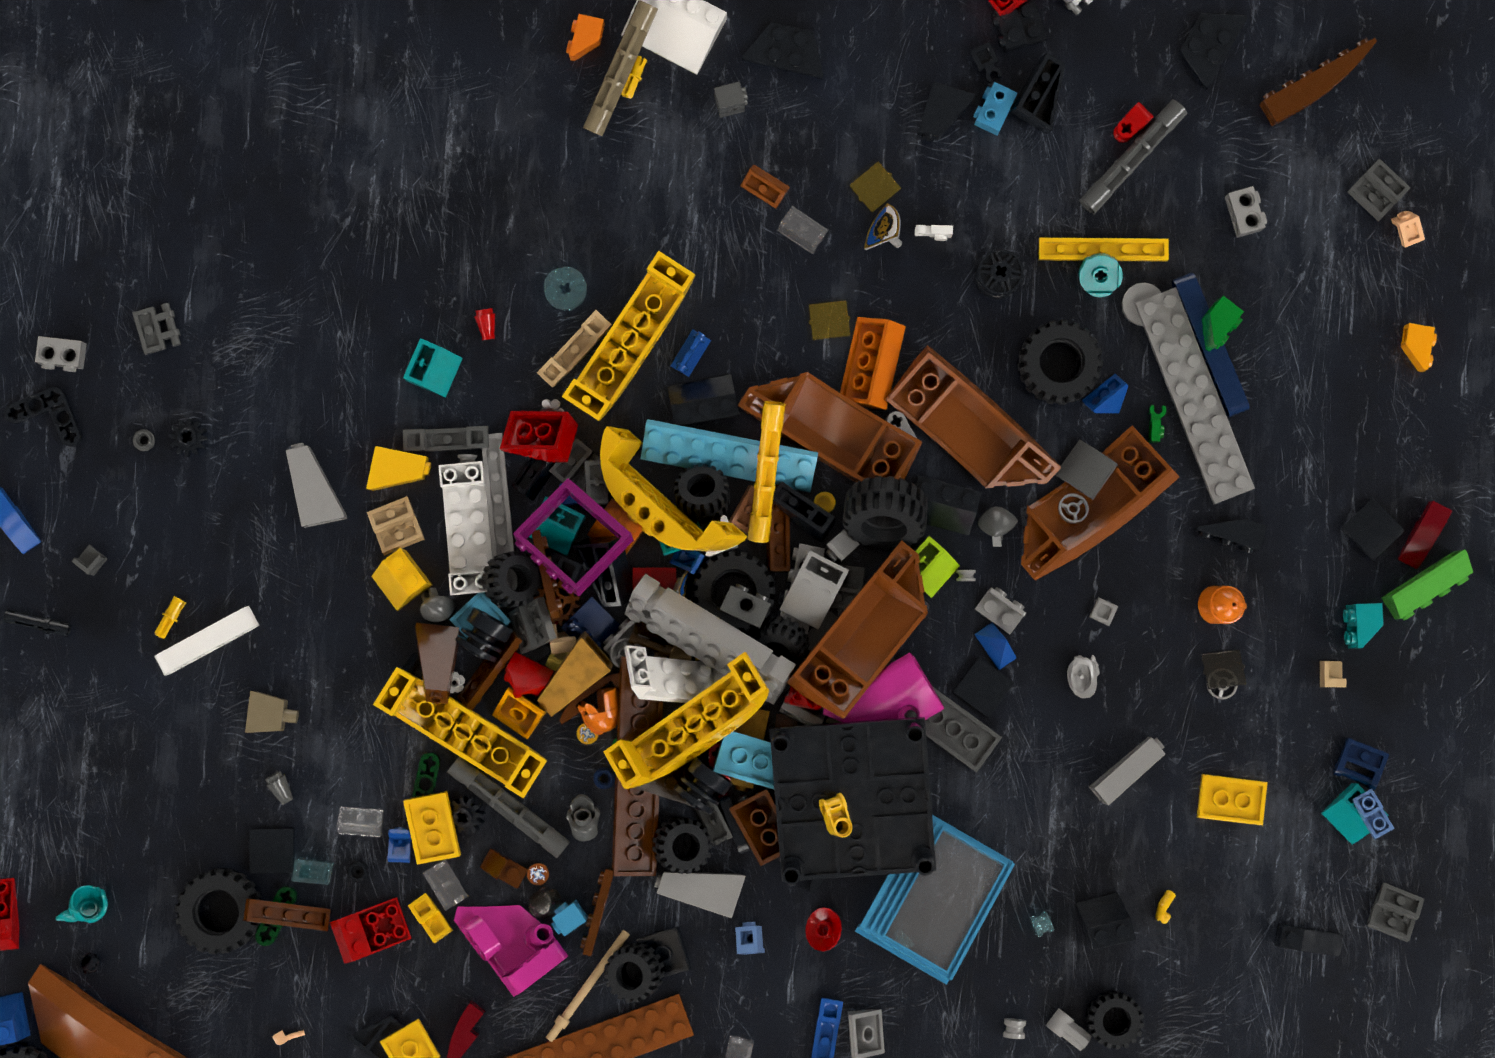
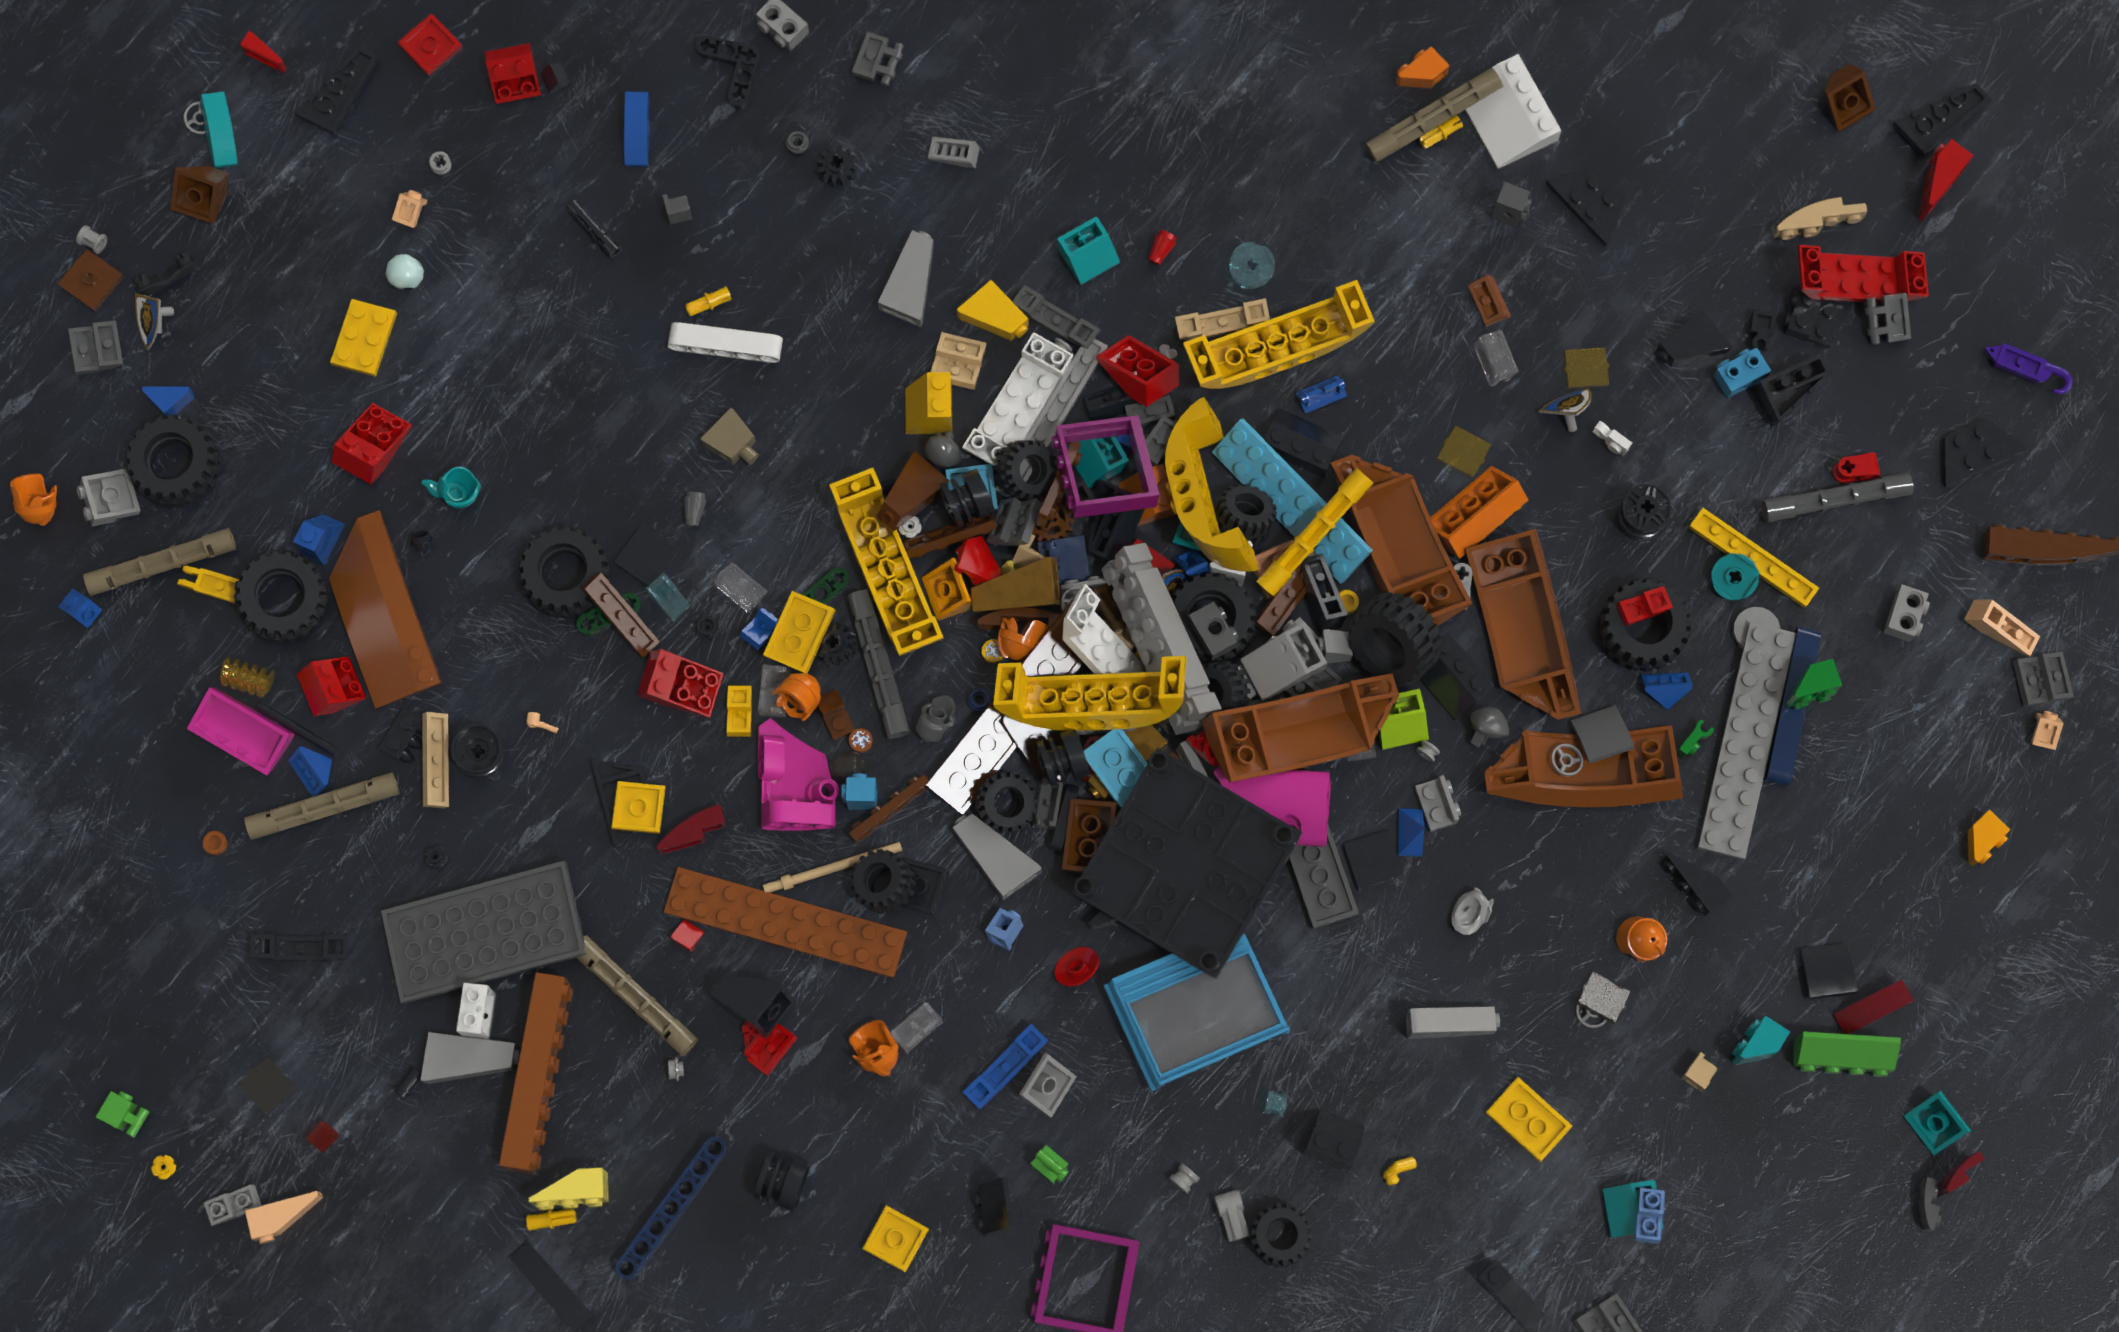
camera: 40 degrees right, 10 degrees down
(288, 360) = (971, 146): none -> light grey slope
(467, 872) = (801, 692): none -> orange helmet
(834, 811) = (1162, 861): yellow piece -> none
(1053, 352) = (1644, 606): none -> red slope
(1103, 611) = (1529, 870): light grey tile -> none
(1322, 171) = (2002, 626): none -> light nougat slope
(1364, 757) = (1677, 1166): dark blue plate -> none

